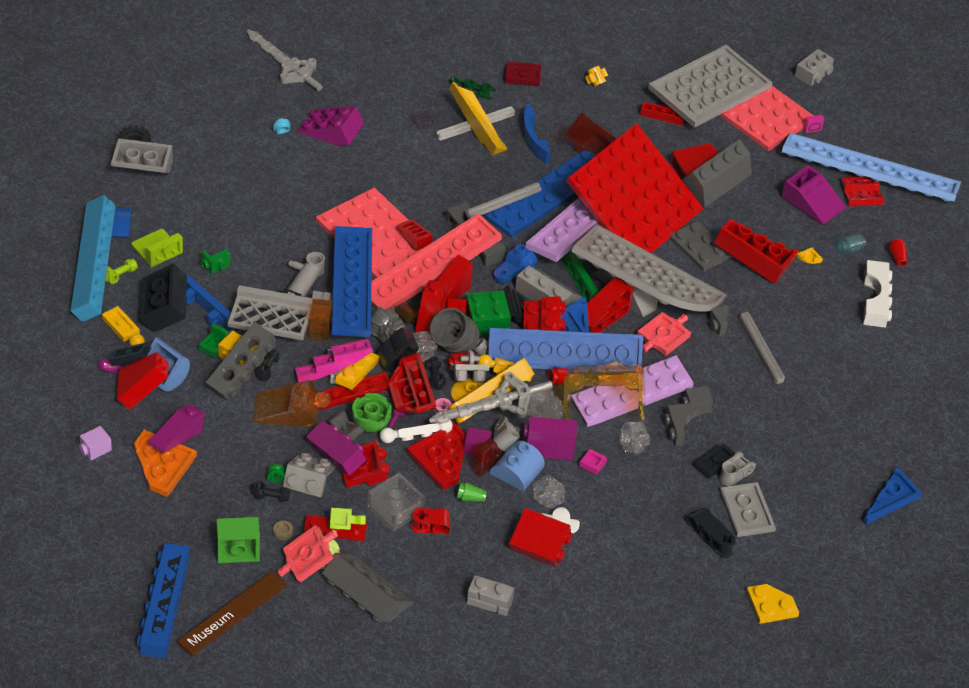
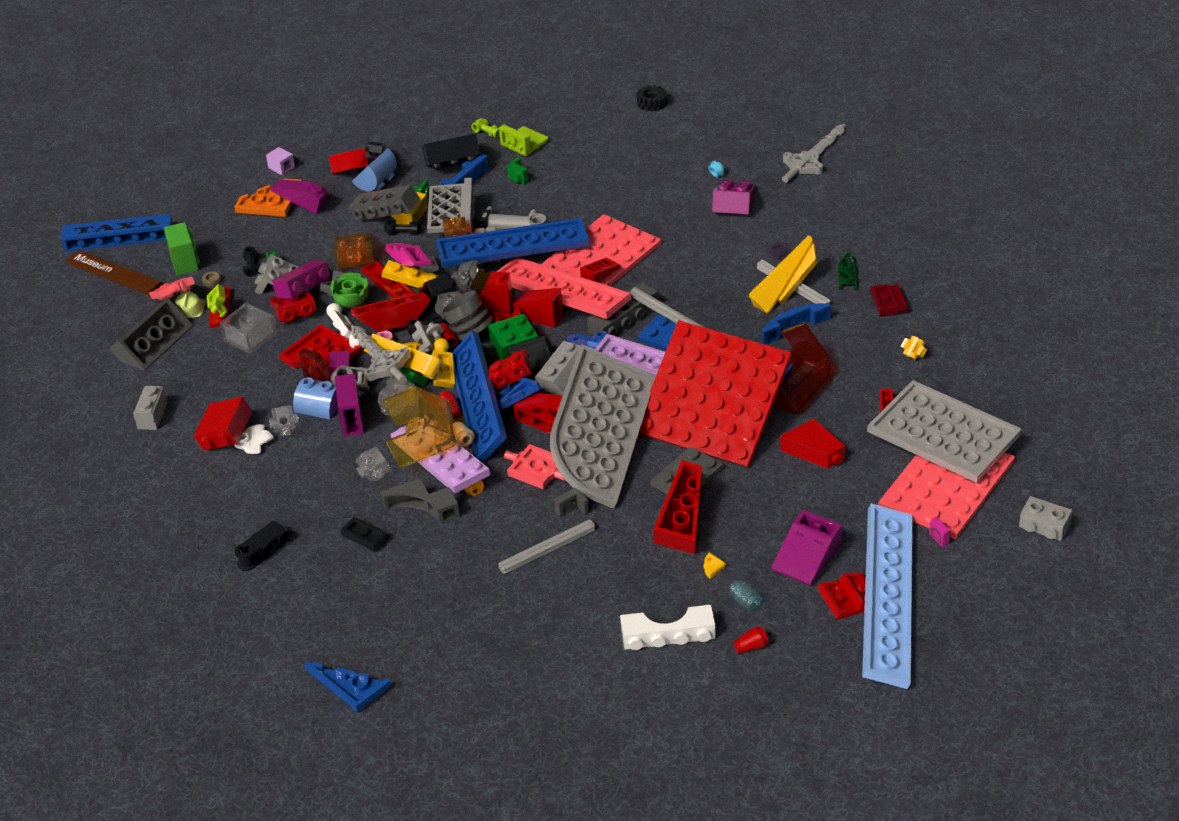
camera: 85 degrees right, 5 degrees down
(93, 258) = (490, 108): dark azure brick -> none
(122, 222) = (543, 115): blue slope -> none
(123, 326) = (415, 148): yellow plate -> none
(143, 156) = (621, 102): light grey slope -> none
(432, 521) = (235, 356): red piece -> none
(471, 493) = (277, 373): bright green cone -> none
(593, 462) = (338, 446): dark pink plate -> none
(720, 174) = (797, 461): dark grey slope -> none
(736, 469) = (355, 548): light grey piece -> none
(747, 509) = (305, 571): light grey tile -> none
(771, 603) = (178, 607): yellow plate -> none

